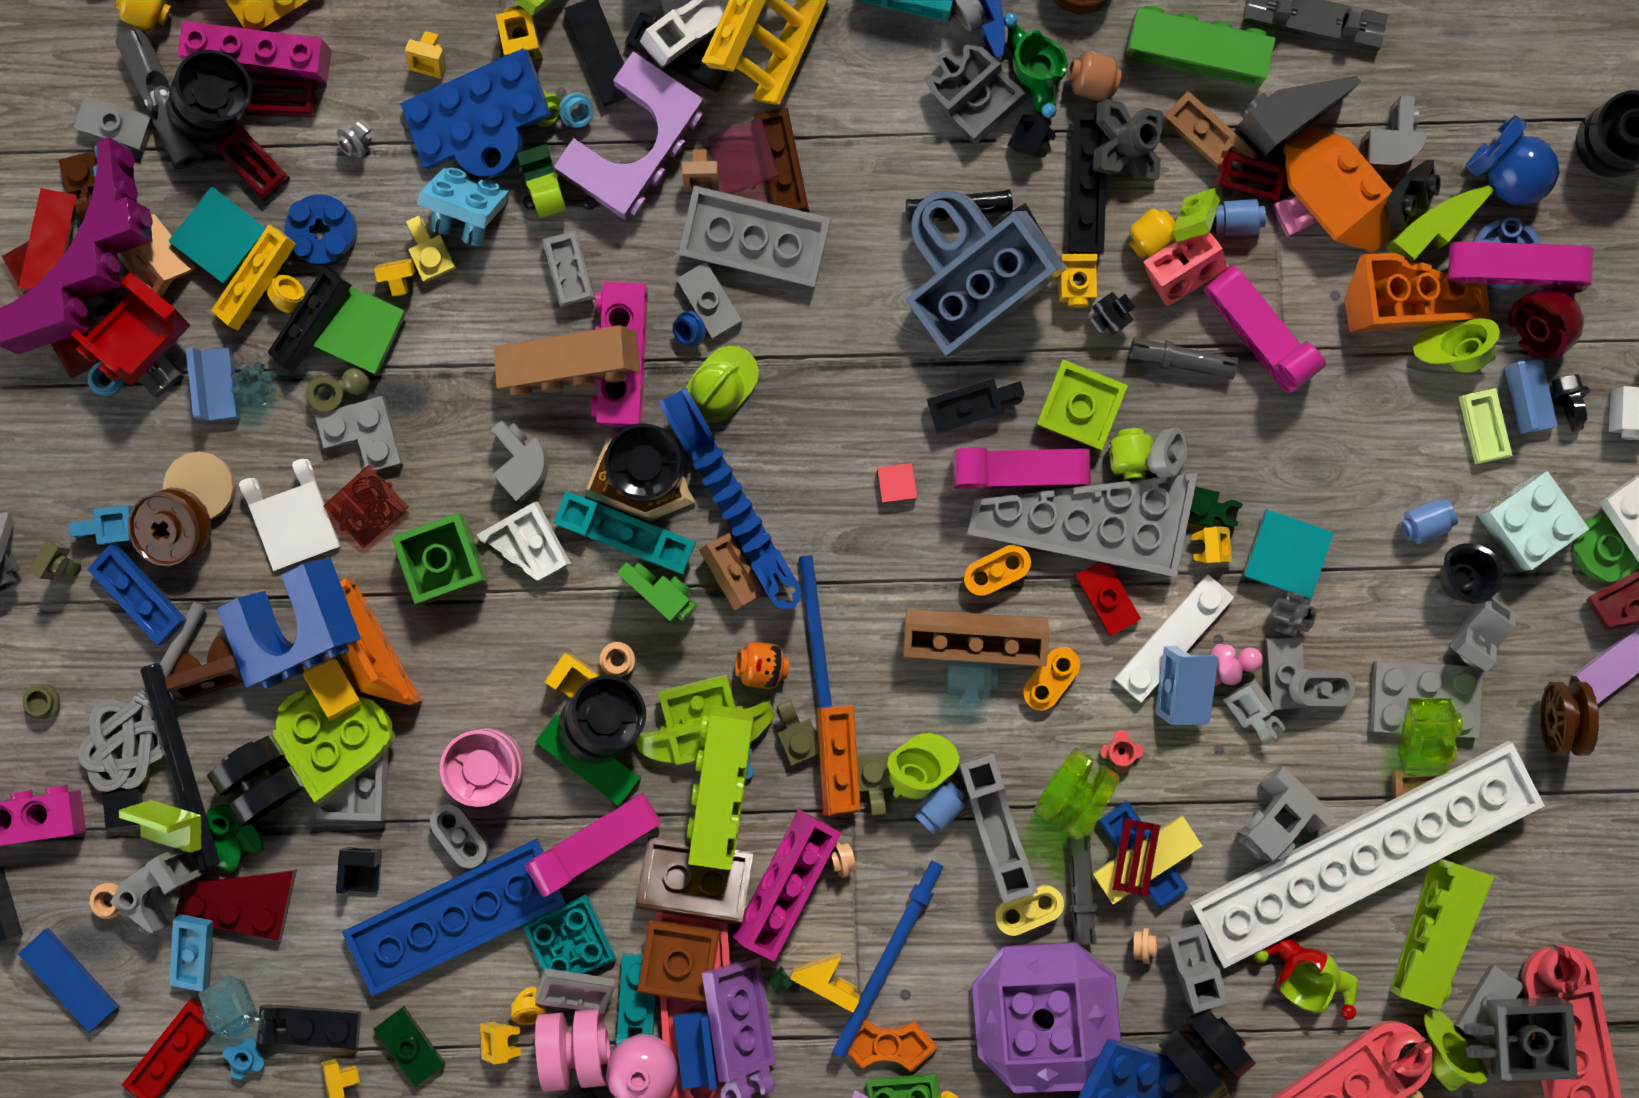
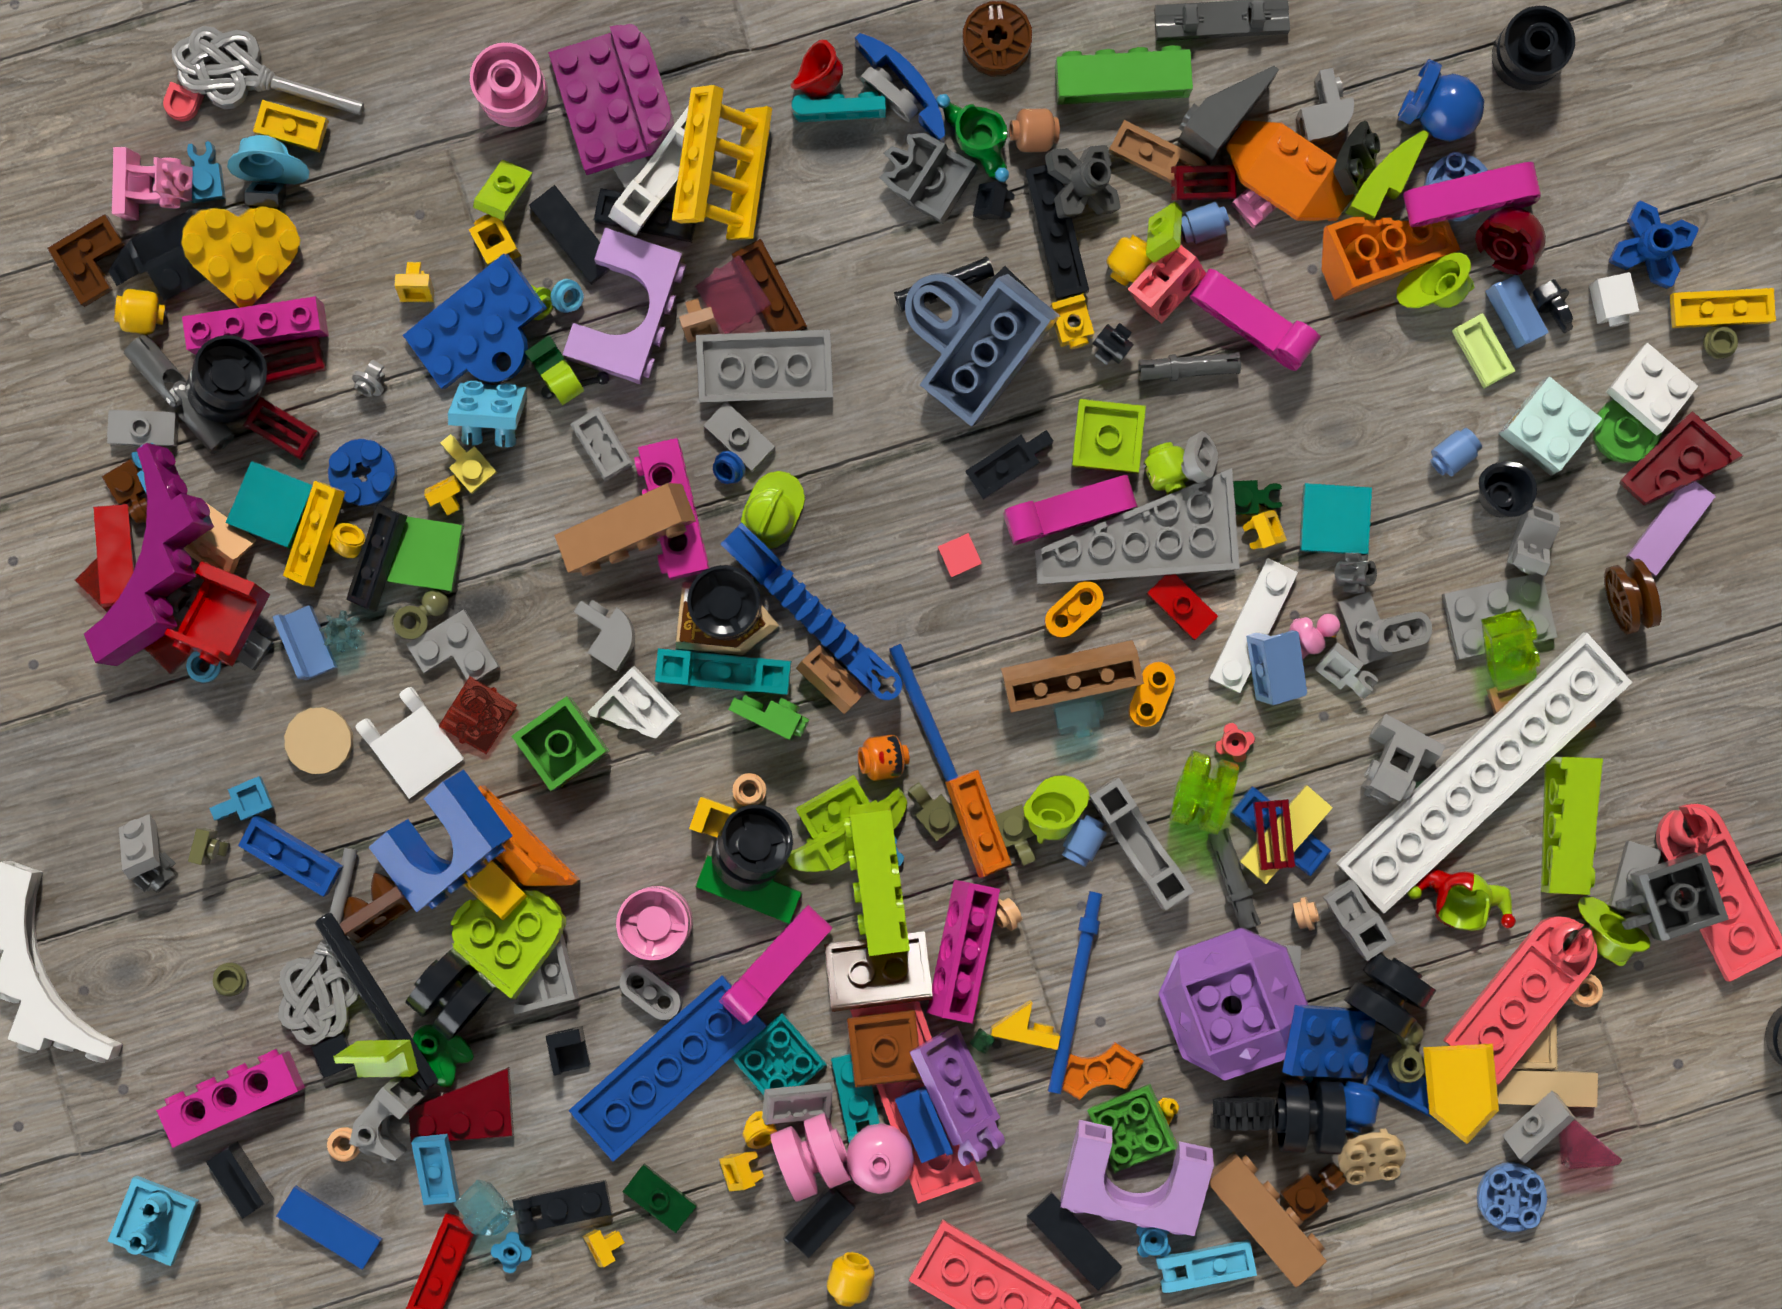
camera: 15 degrees left, 0 degrees up
(169, 526) = (320, 779): reddish brown wheel -> none
(1029, 911) = (1192, 913): light yellow plate -> none

